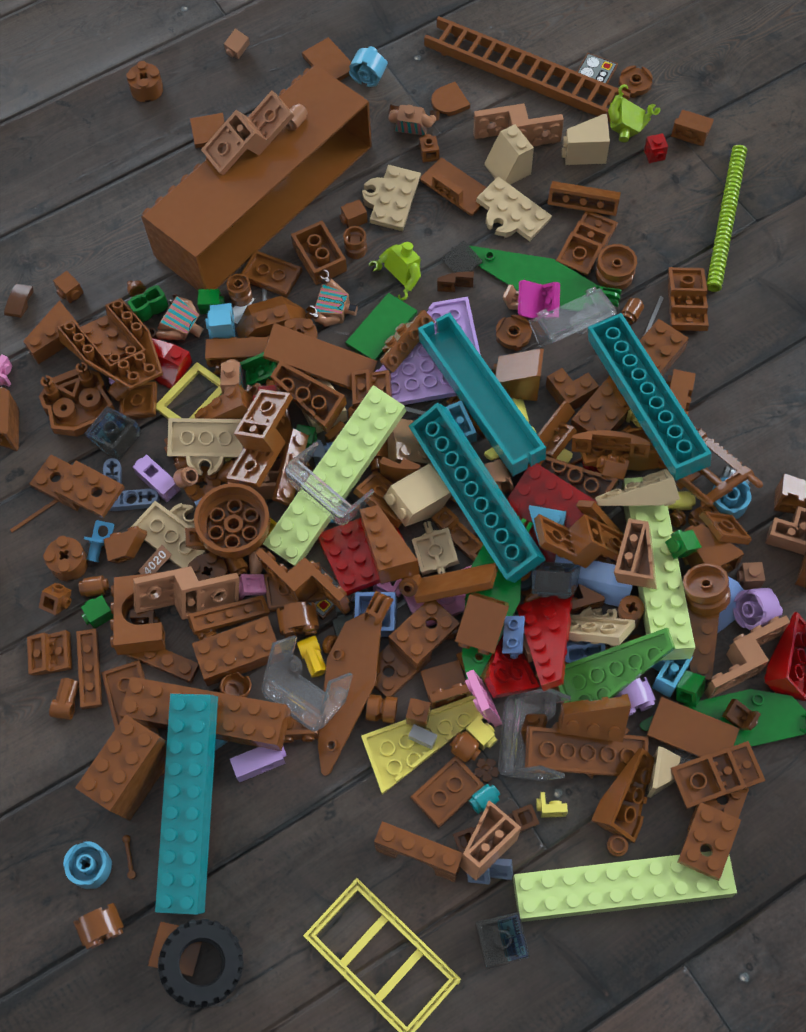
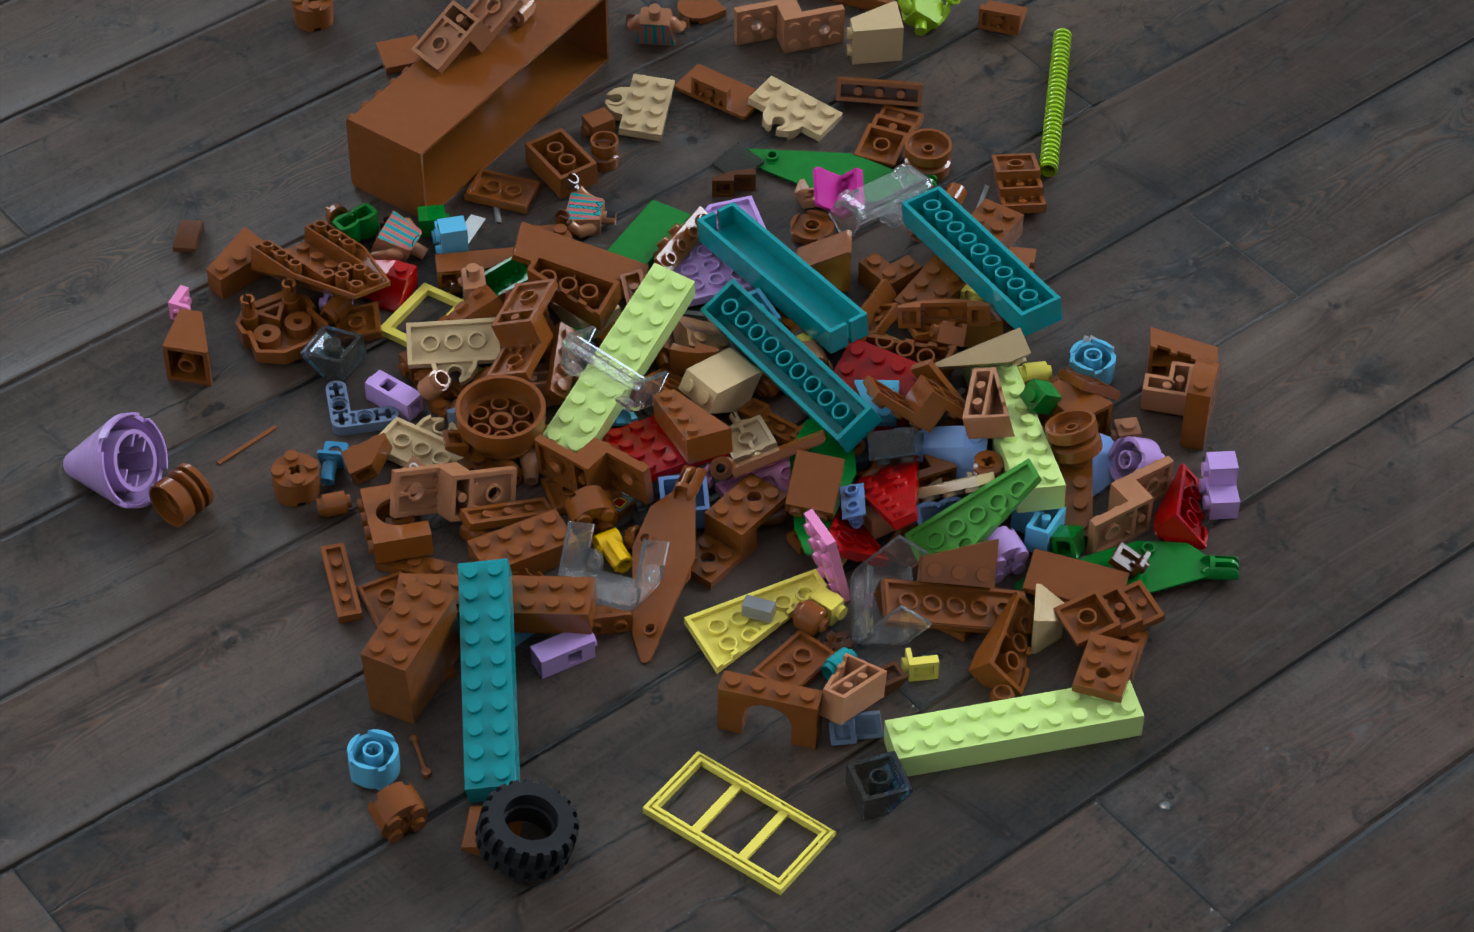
camera: 10 degrees left, 20 degrees down
(49, 653) = (288, 573): dark orange slope -> none
(55, 598) = (289, 516): dark orange brick -> none
(64, 706) = (316, 617): dark orange piece -> none
(68, 287) = (250, 215): dark orange brick -> none
(77, 486) = (297, 407): dark orange bracket -> none
(96, 612) = (343, 527): green brick -> none
(239, 290) = (468, 202): dark orange wheel -> none
(251, 585) = (529, 488): bright pink bracket -> none
(261, 316) = (502, 230): dark orange wedge -> none
(381, 708) = (705, 589): dark orange wheel -> none
(402, 263) = (664, 166): lime torso -> none
(418, 713) = (750, 582): dark orange brick -> none
(429, 144) = (679, 50): dark orange brick -> none
(445, 684) = (778, 563): dark orange bracket -> none
(510, 156) = (784, 52): tan slope -> none
(656, 148) = (961, 38): red brick -> none
(723, 487) = (1078, 347): dark orange piece -> none

